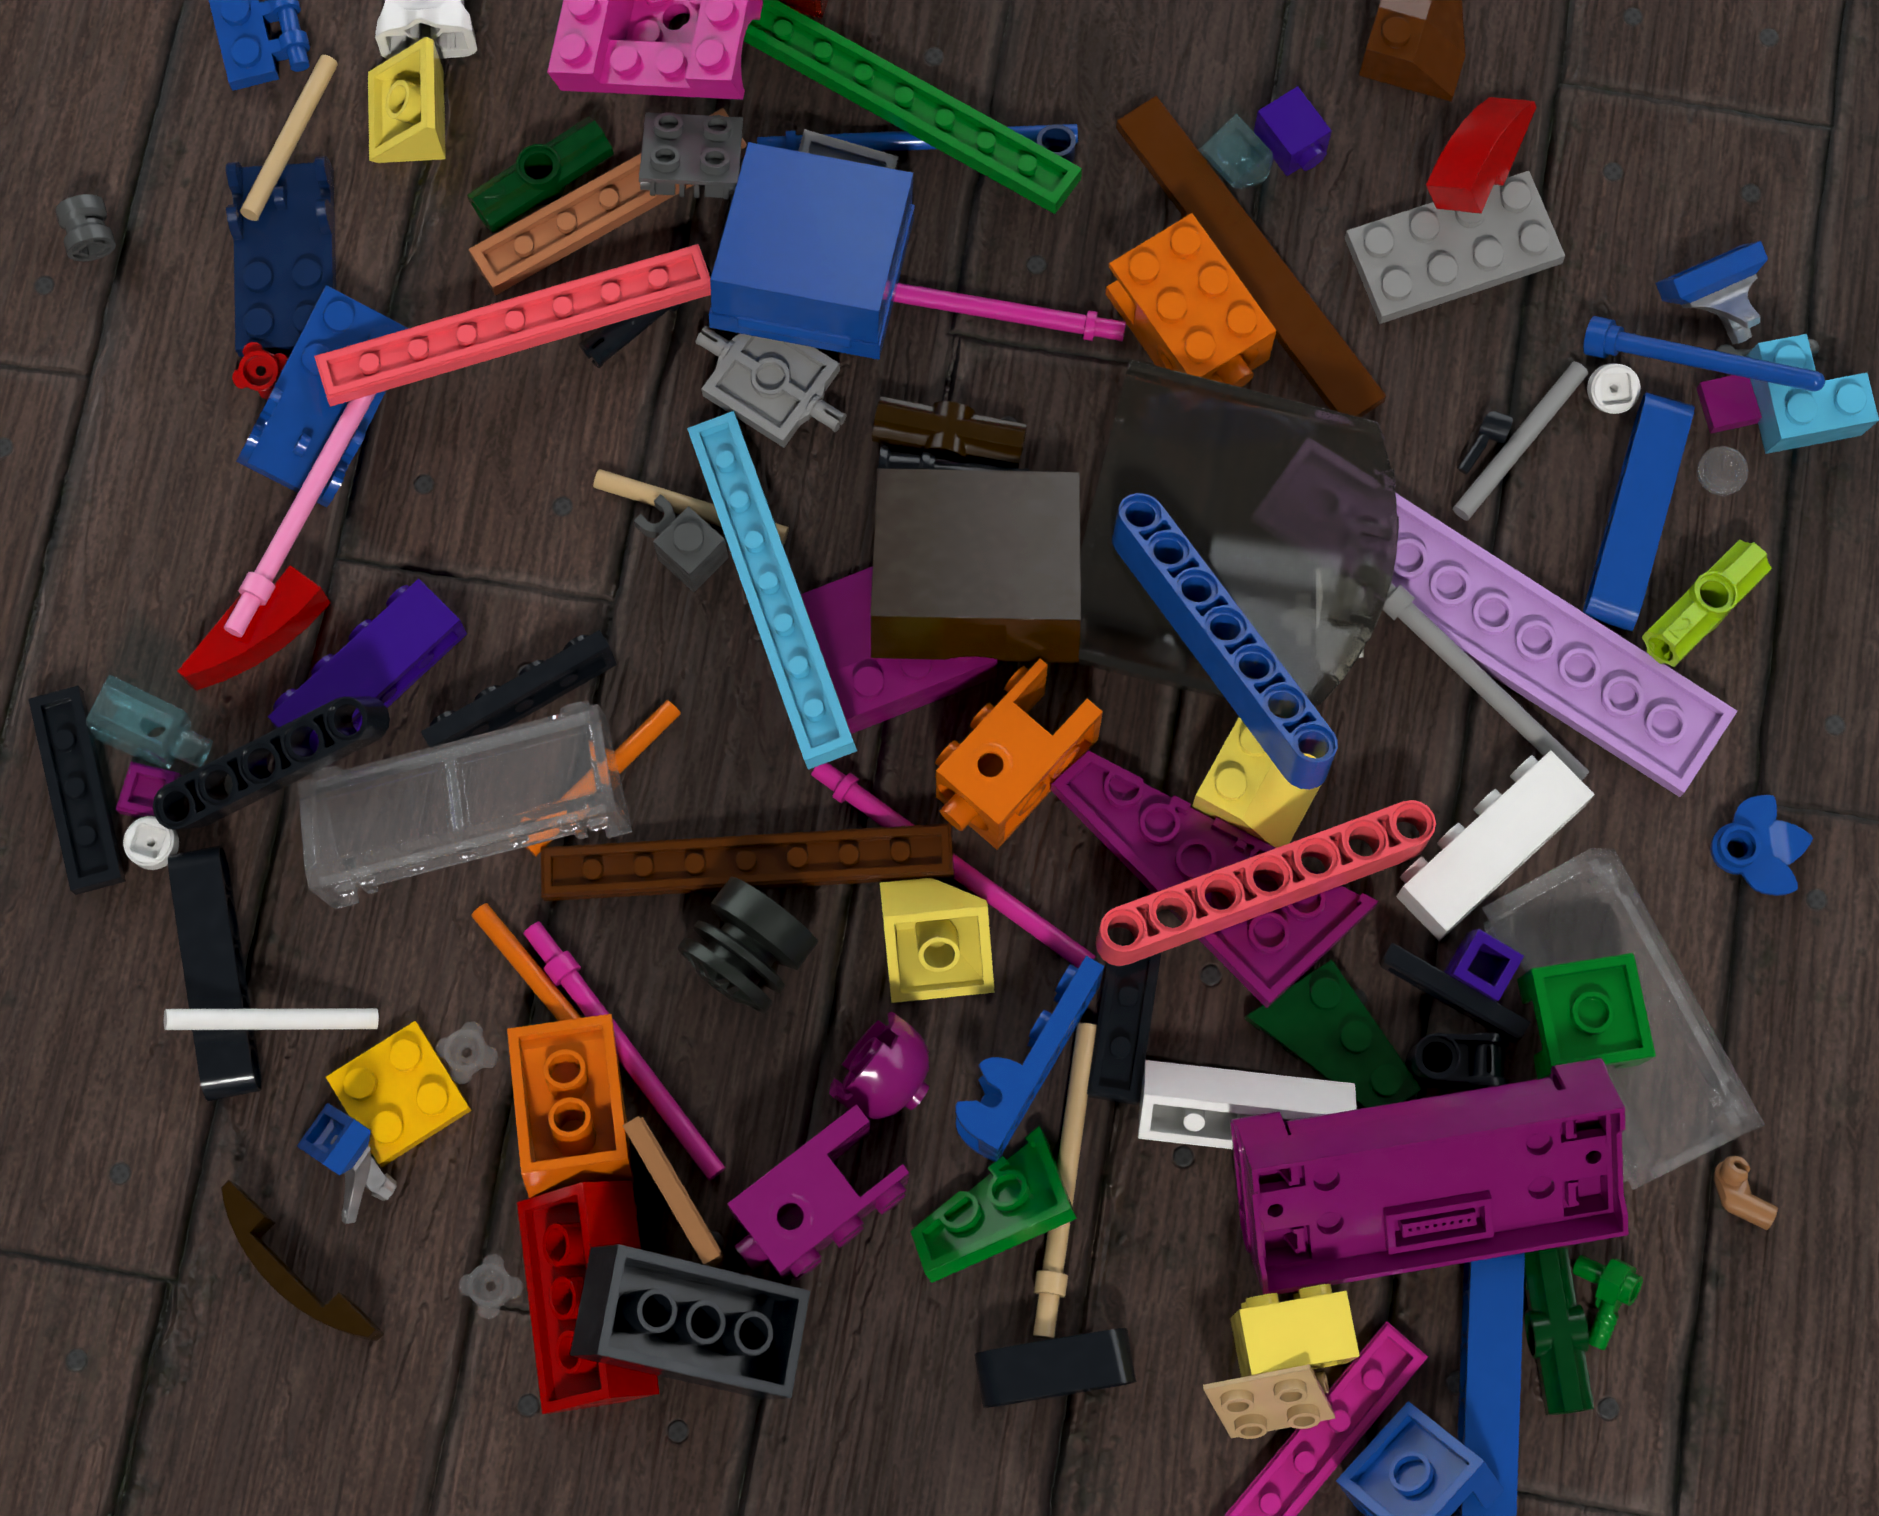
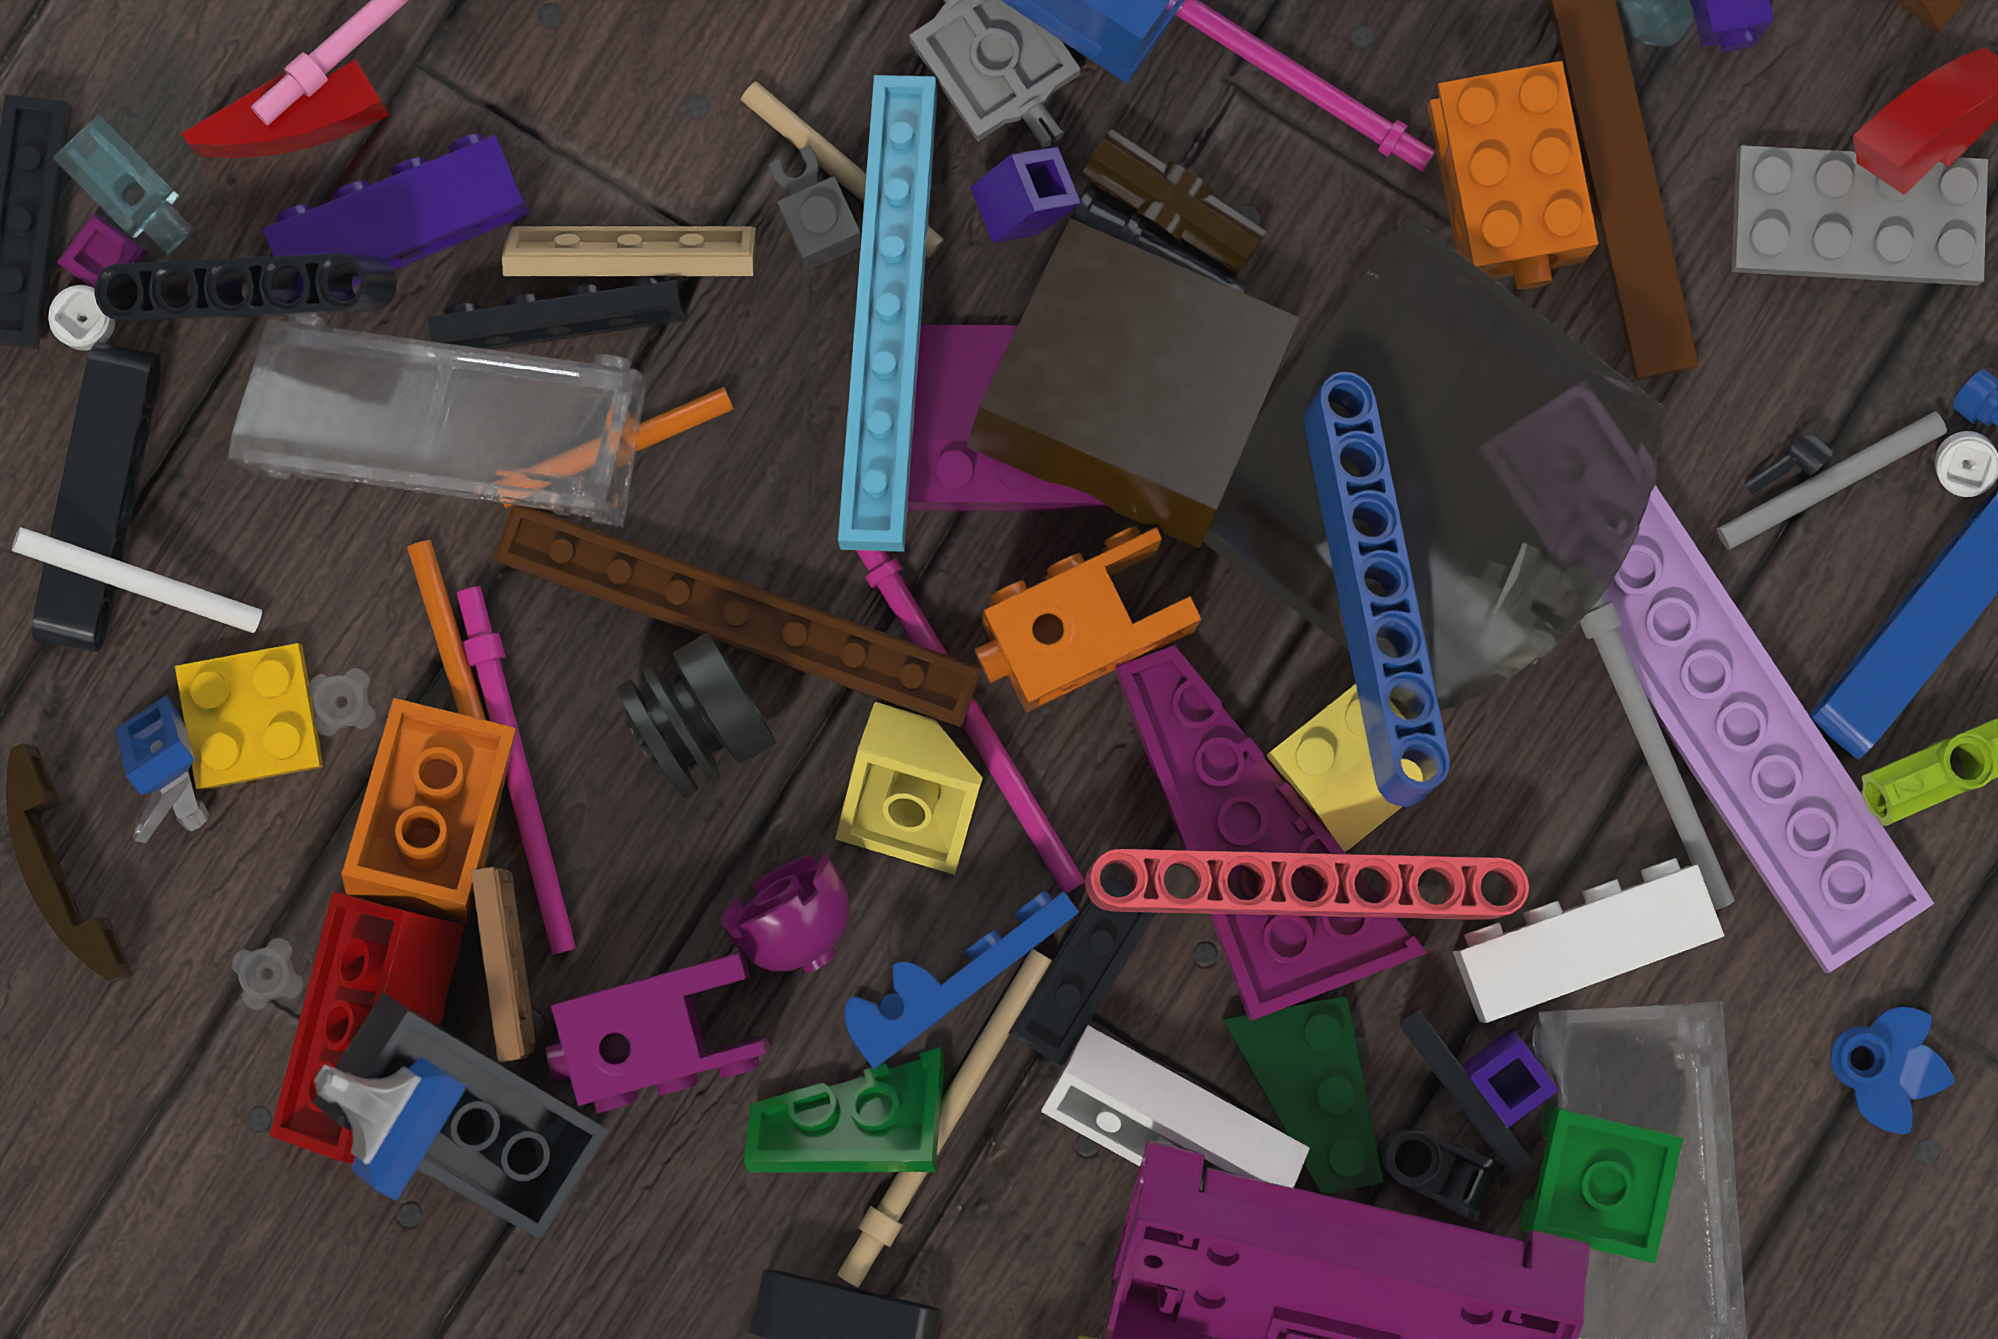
camera: 20 degrees right, 10 degrees up
(554, 626) = (629, 251): none -> tan tile
(639, 1332) = (392, 1118): none -> piece
(836, 467) = (1025, 194): none -> dark purple brick

